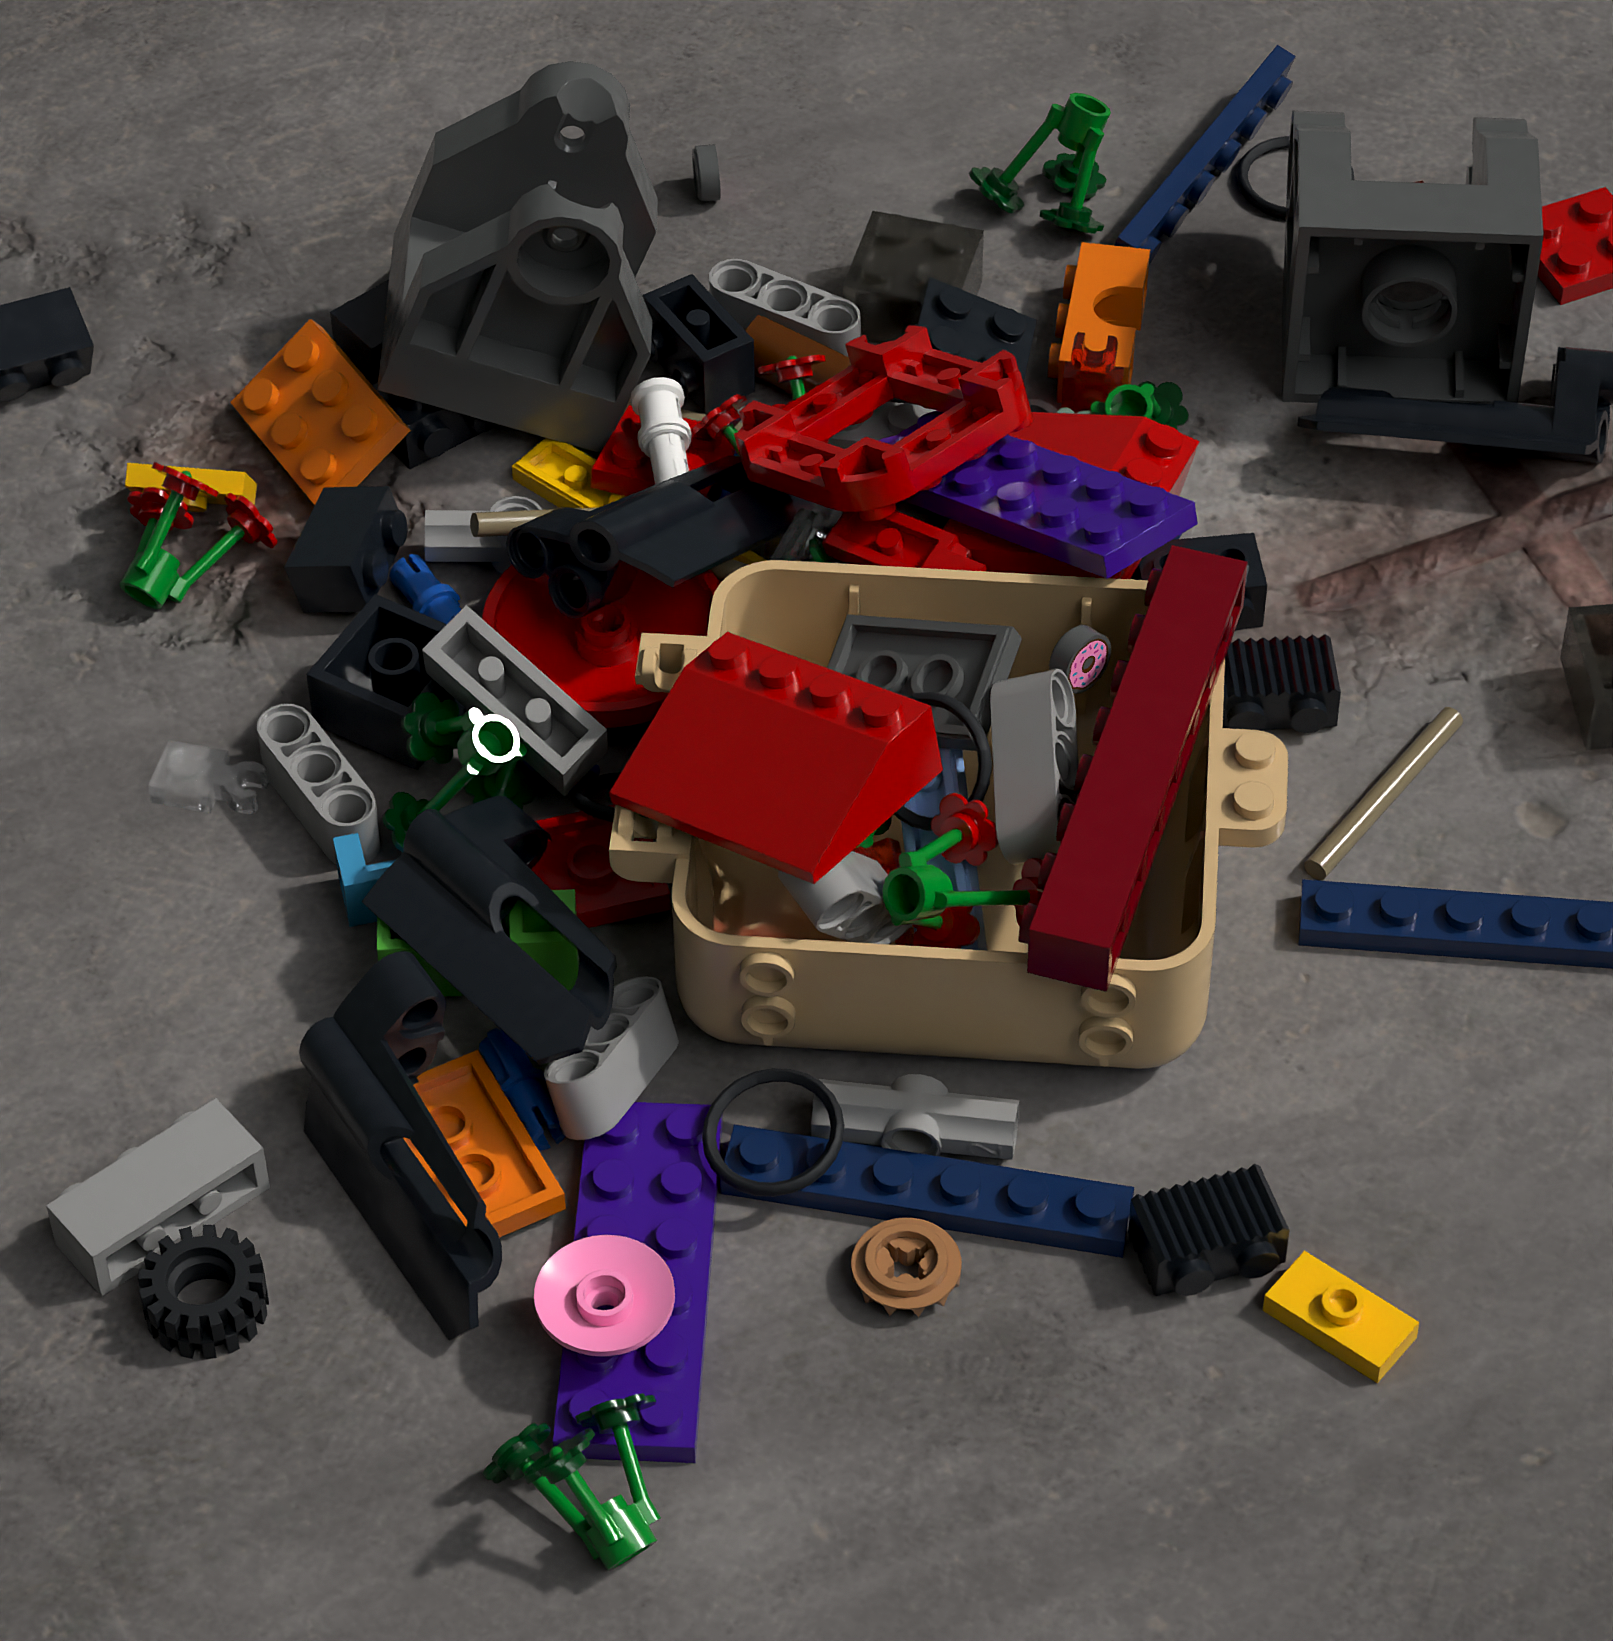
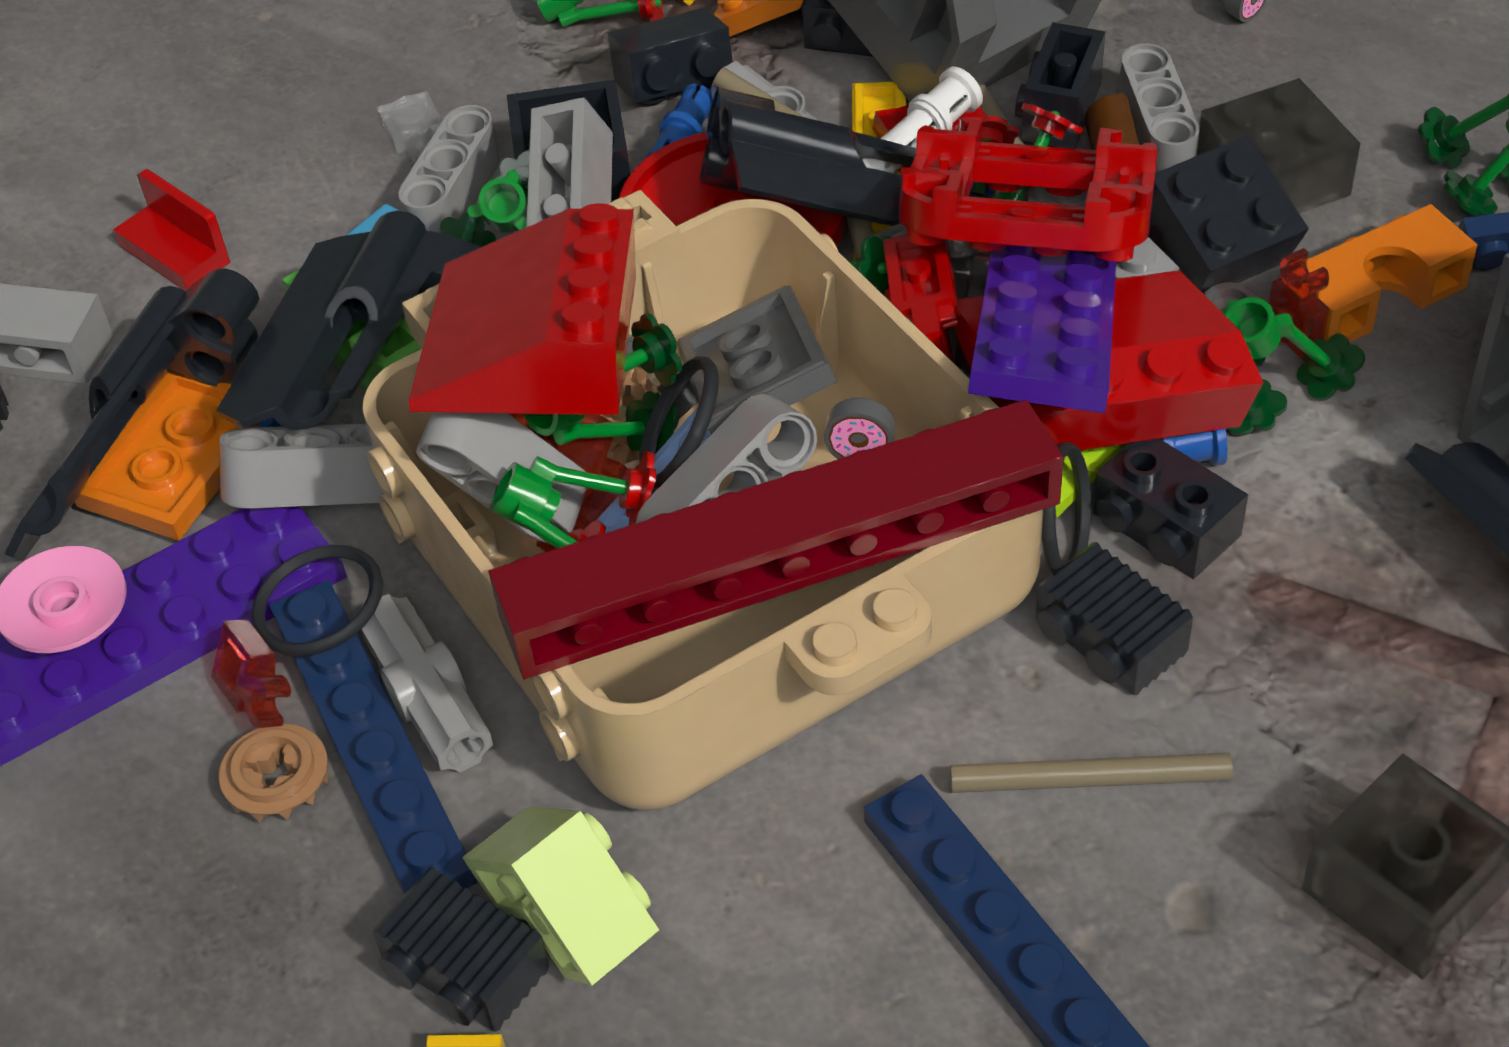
camera: 55 degrees right, 0 degrees up
(154, 1016) = (173, 233): none -> red panel
(792, 1223) = (246, 674): none -> clear red plate
(1219, 1121) = (564, 883): none -> yellowish green brick

